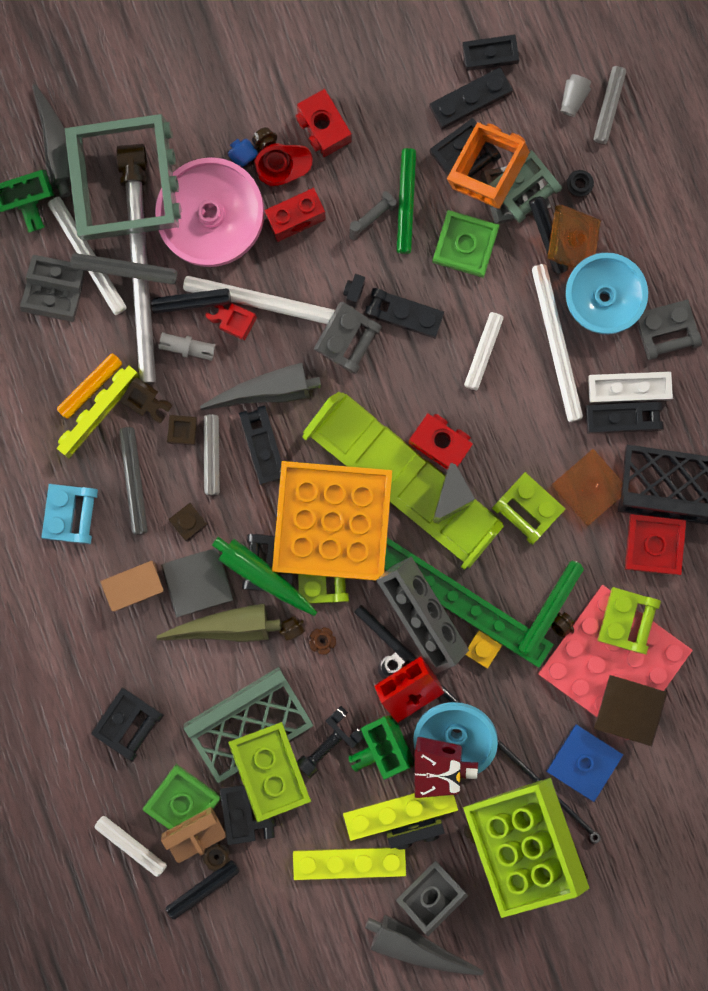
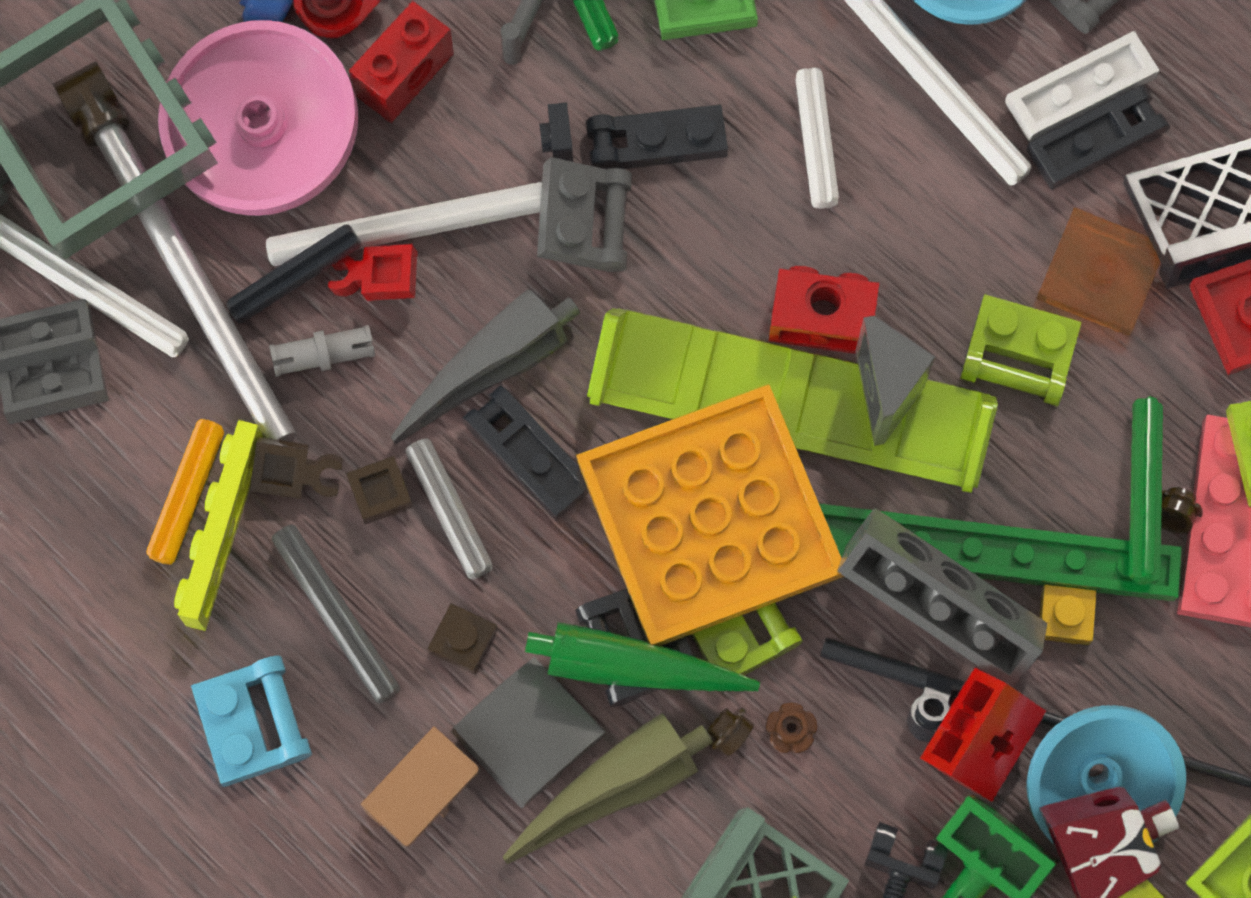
camera: 25 degrees left, 10 degrees down
(124, 268) = (155, 269): dark grey axle -> none

